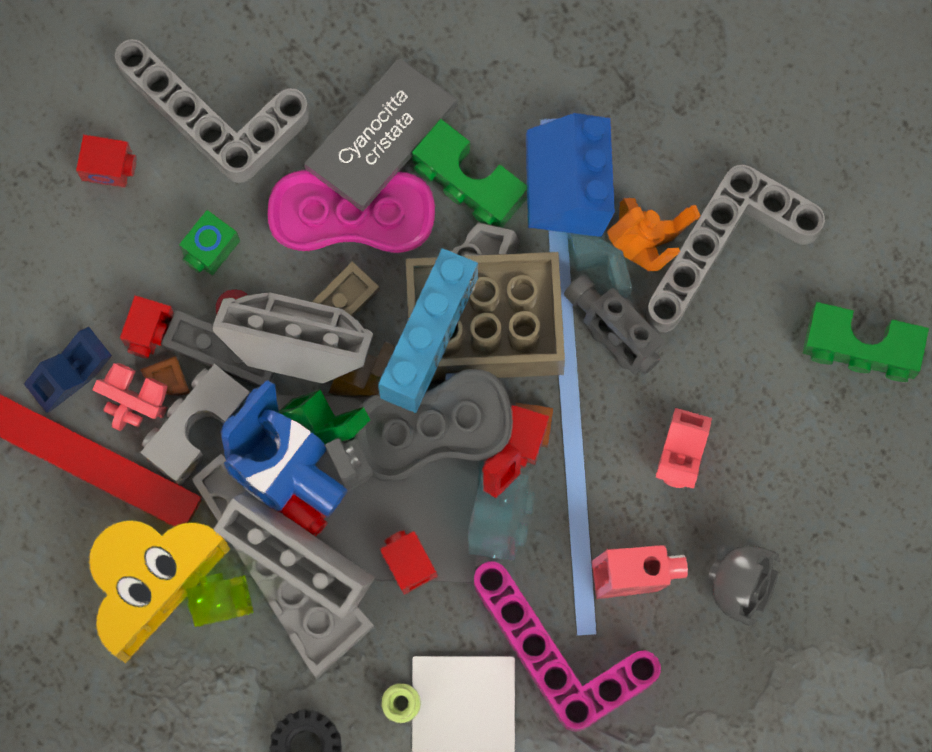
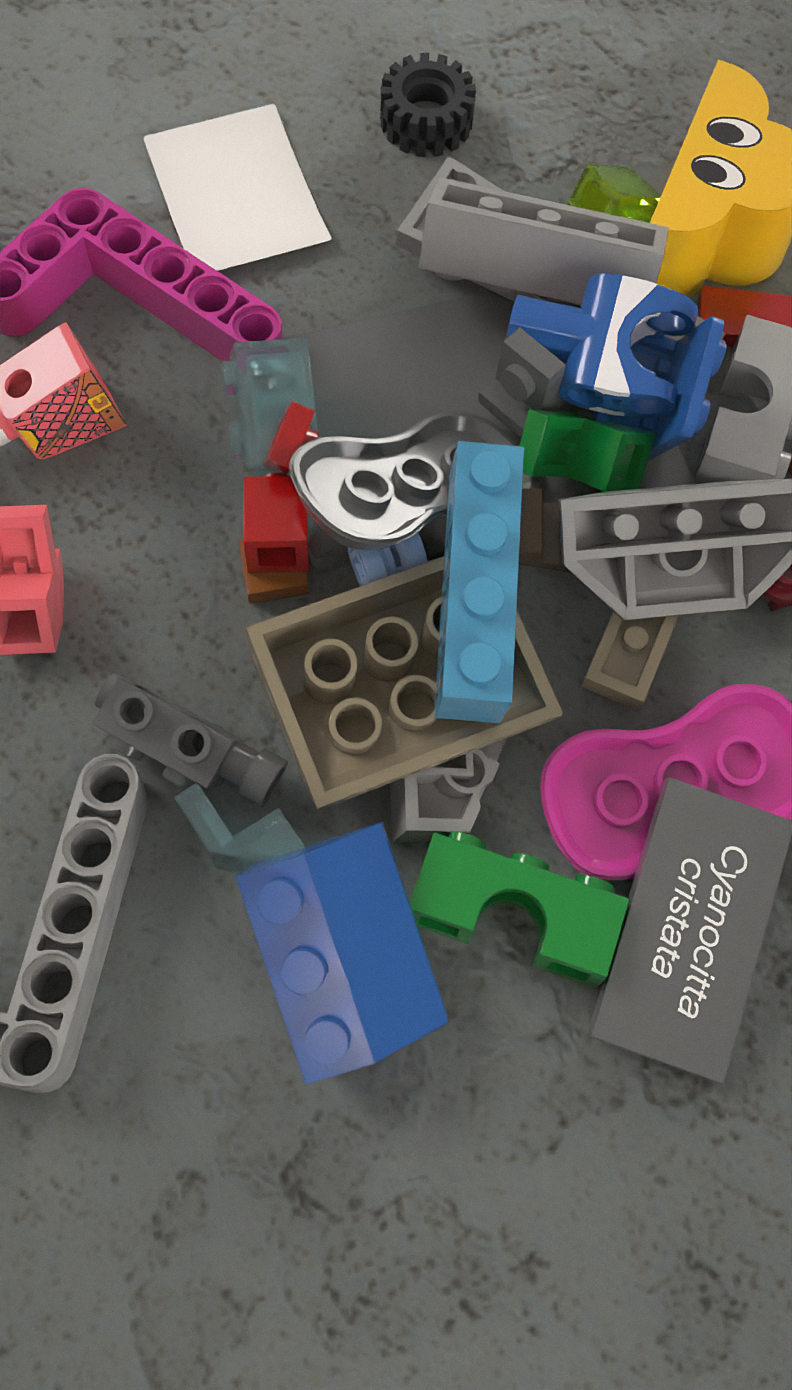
camera: 155 degrees right, 10 degrees down
(389, 706) = (326, 180): yellowish green plate -> none
(408, 561) = (380, 316): red brick -> none
(574, 451) = (221, 611): light blue sticker -> none
(641, 232) = (182, 902): orange piece -> none

